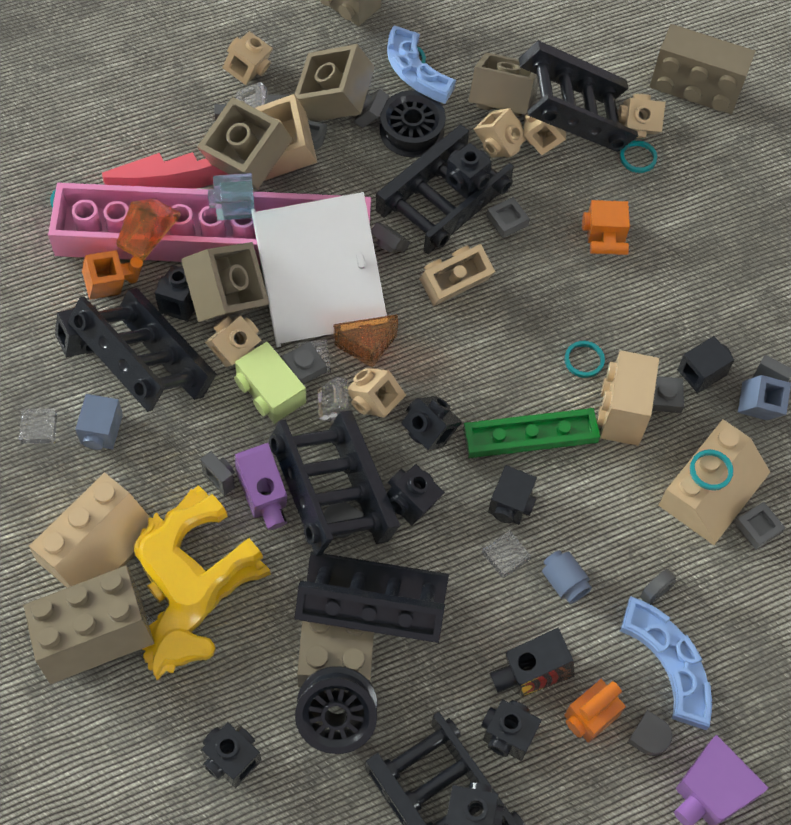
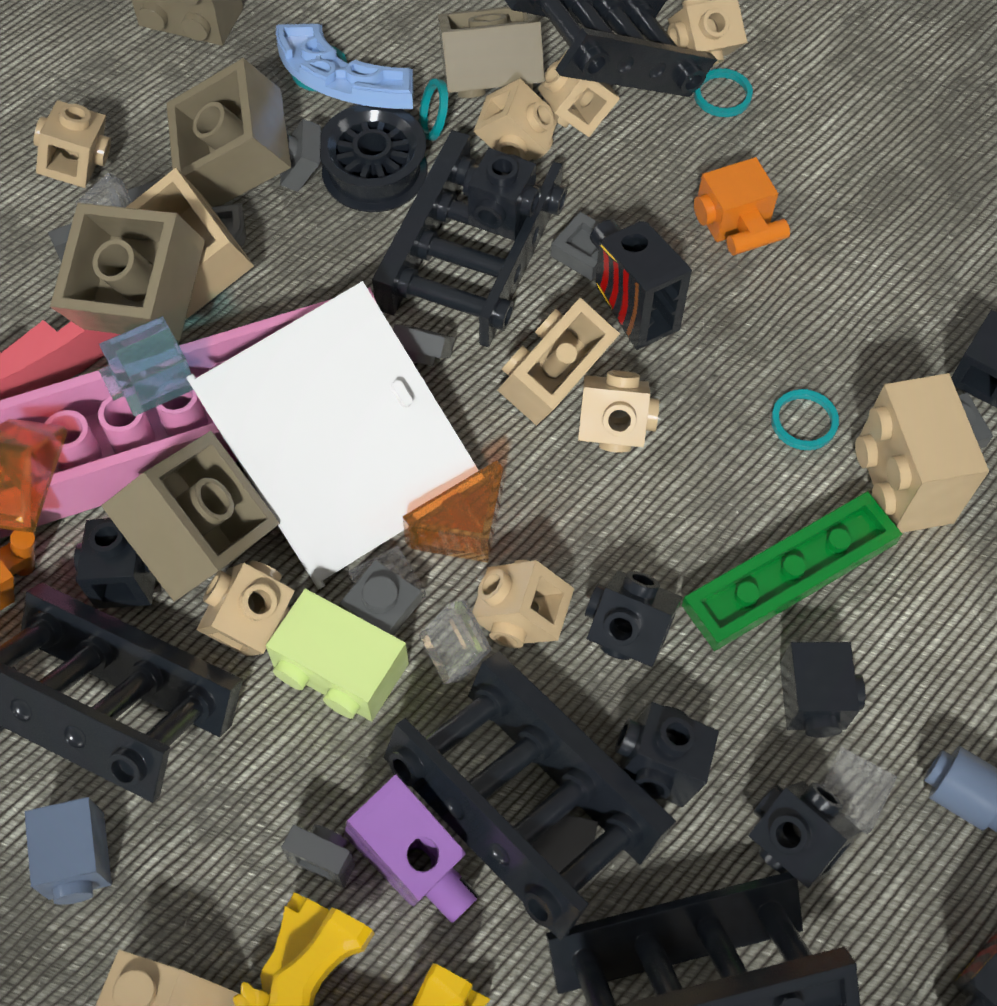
camera: 20 degrees left, 0 degrees up
(453, 120) = (442, 111): none -> teal piece
(464, 558) = (802, 831): none -> black brick
(476, 313) = (617, 392): none -> tan brick
(524, 237) = (640, 280): none -> black torso

